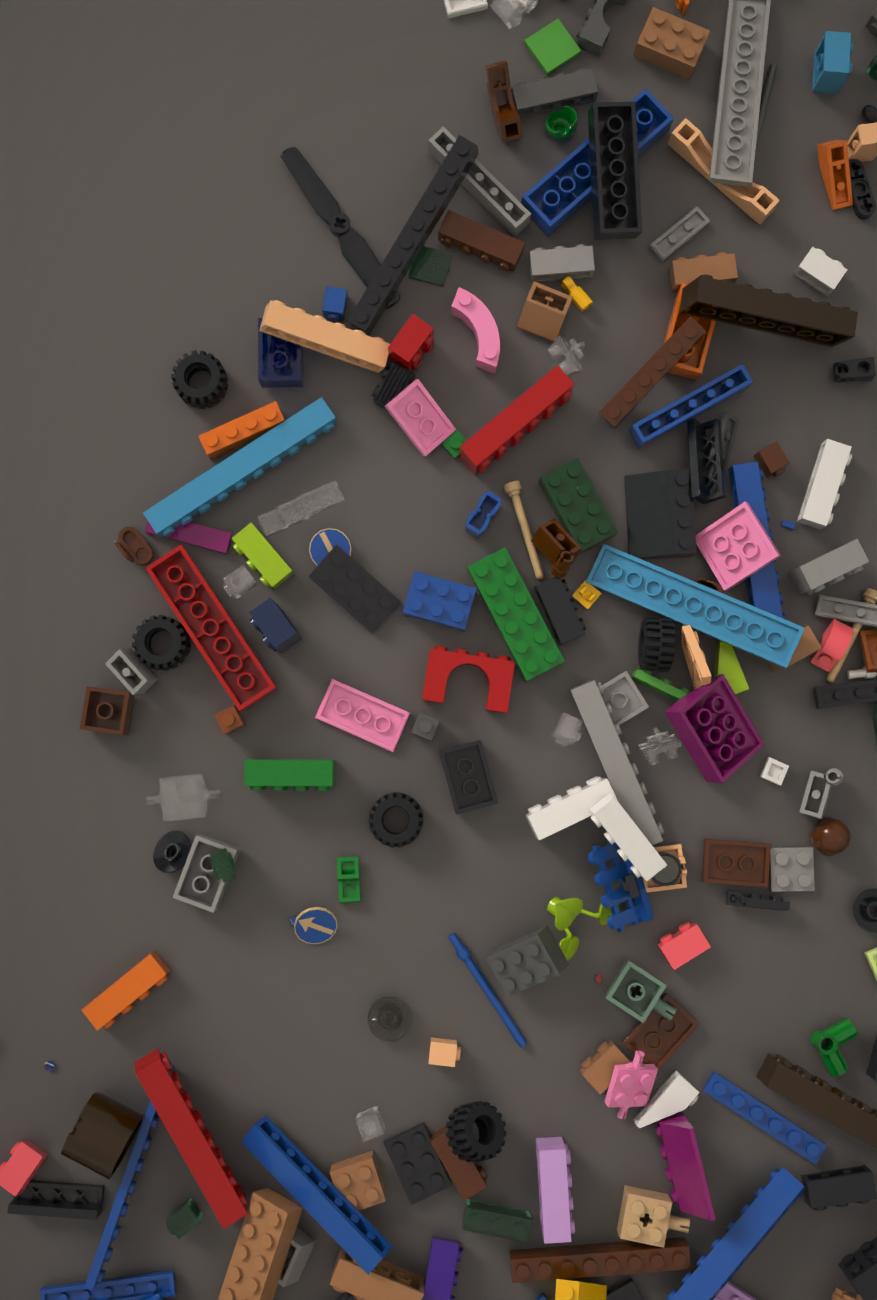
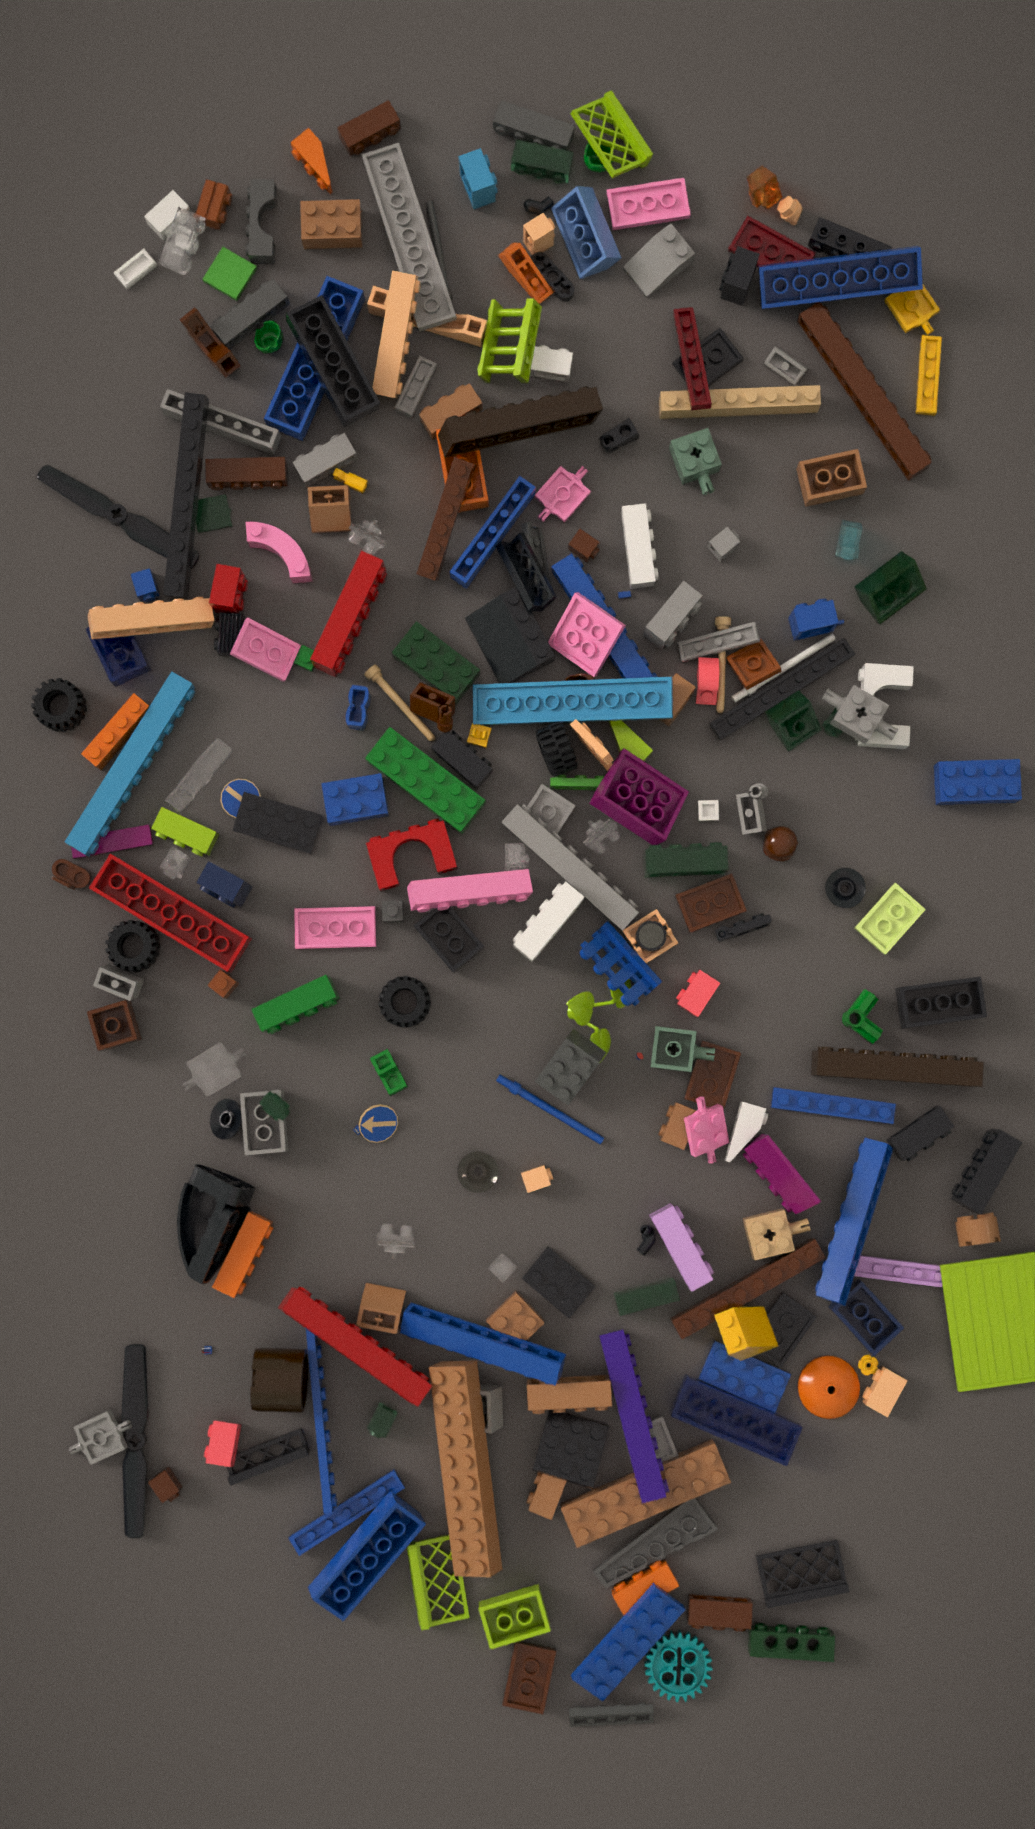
camera: 20 degrees left, 0 degrees up
(111, 942) = (210, 1219): none -> black panel
(234, 1108) = (381, 1308): none -> medium nougat slope
(288, 1051) = (395, 1243): none -> clear hips
(466, 1176) = (592, 1262): reddish brown brick -> none
(490, 1131) = (599, 1217): black tyre -> none
(509, 742) = (469, 889): none -> bright pink brick
(524, 1163) = (648, 1239): none -> black arm
(627, 836) = (606, 922): white brick -> none
(630, 885) = (628, 961): black plate -> none
(685, 173) = (395, 333): none -> light nougat brick
(733, 812) = (685, 860): none -> clear green brick
(774, 400) = (562, 494): none -> bright pink plate
(791, 869) = (760, 886): light grey plate -> none
(802, 245) = (523, 351): none -> lime fence

